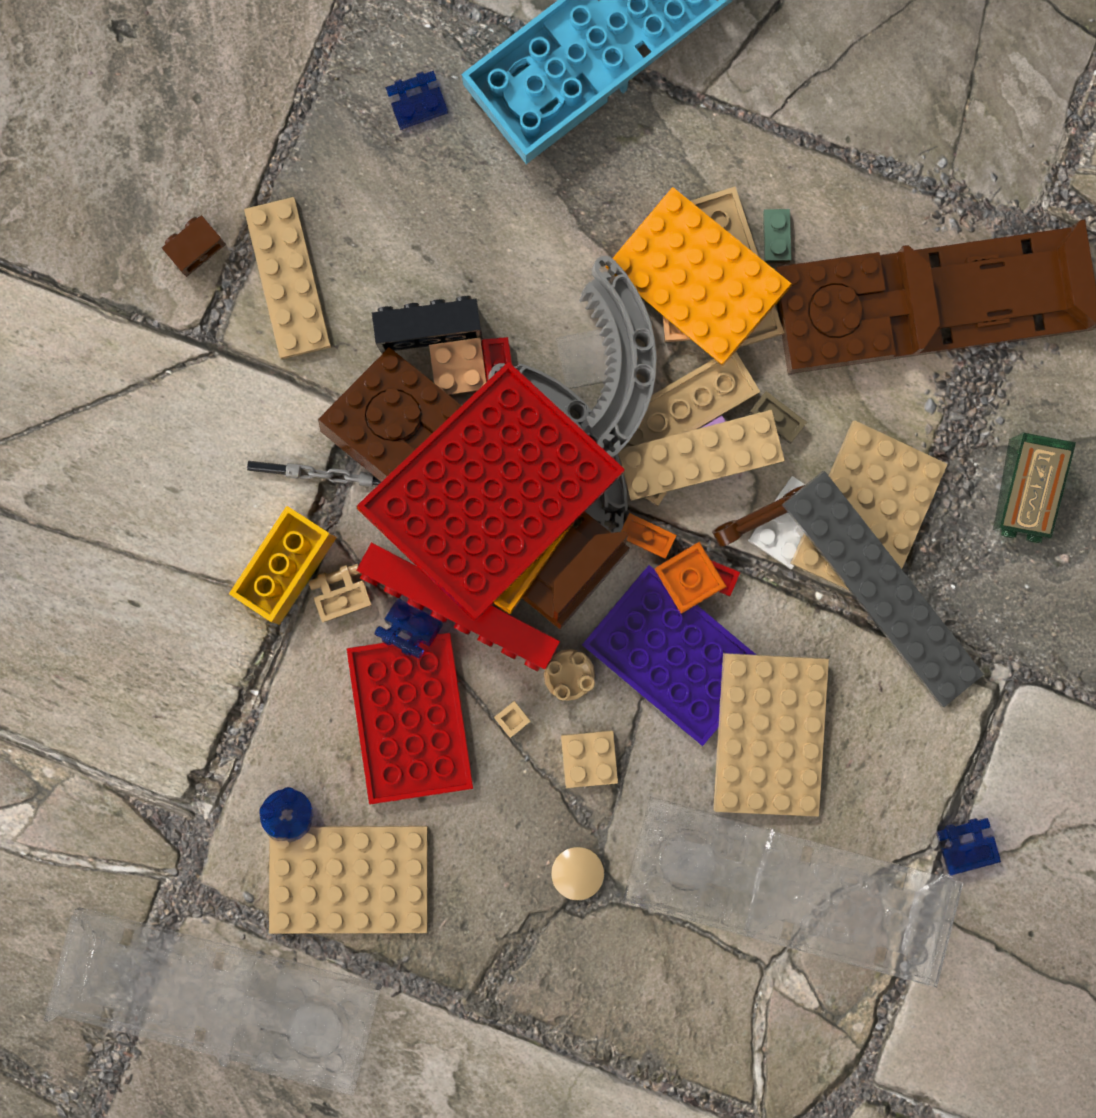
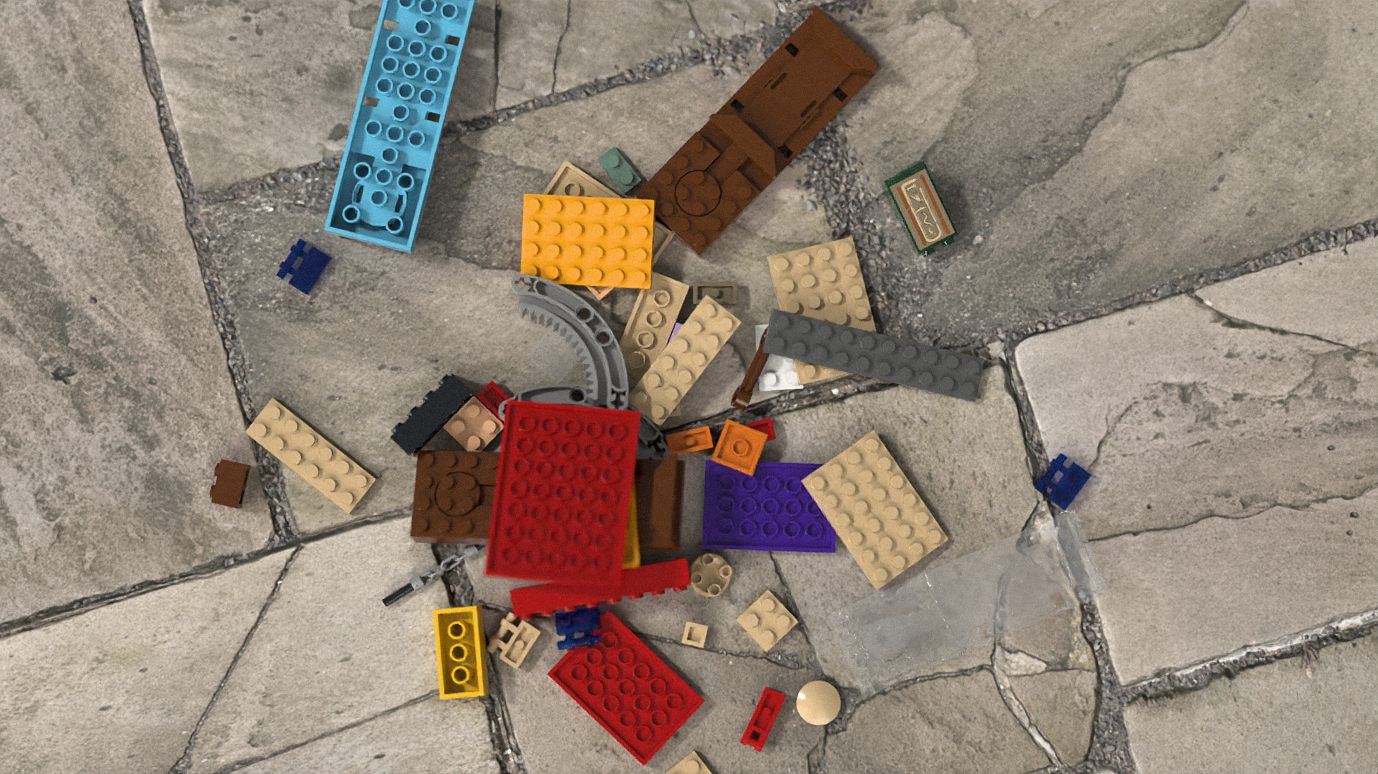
camera: 40 degrees left, 0 degrees up
(514, 847) = (763, 718): none -> red plate

